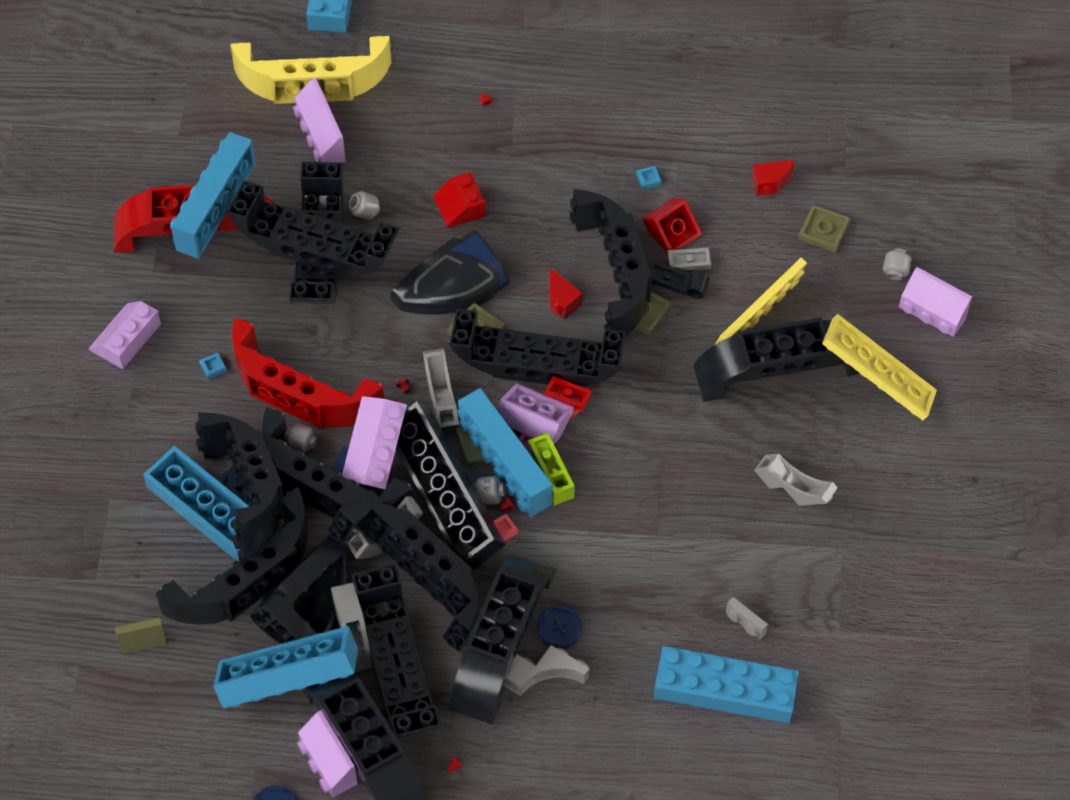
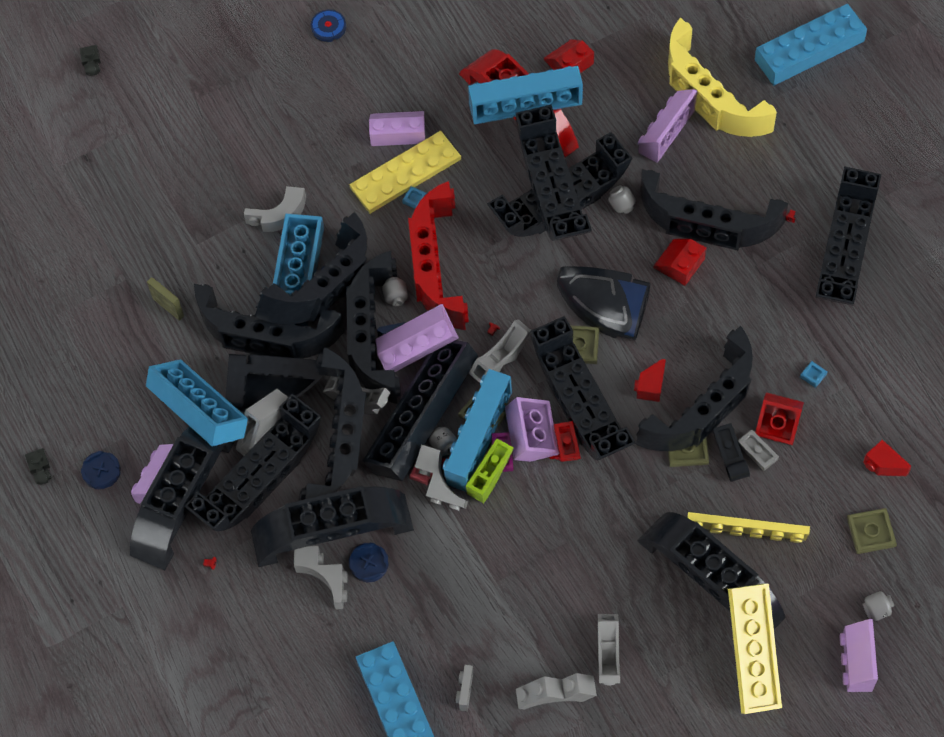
camera: 60 degrees right, 5 degrees up
(133, 493) = (273, 219): none -> light grey arch
(178, 357) = (404, 171): none -> light yellow plate
(181, 157) = (571, 54): none -> red slope
(437, 160) = (709, 222): none -> black slope
(535, 523) = (430, 462): none -> light grey arch
(546, 71) = (848, 236): none -> black slope
(801, 548) = (548, 690): none -> light grey arch

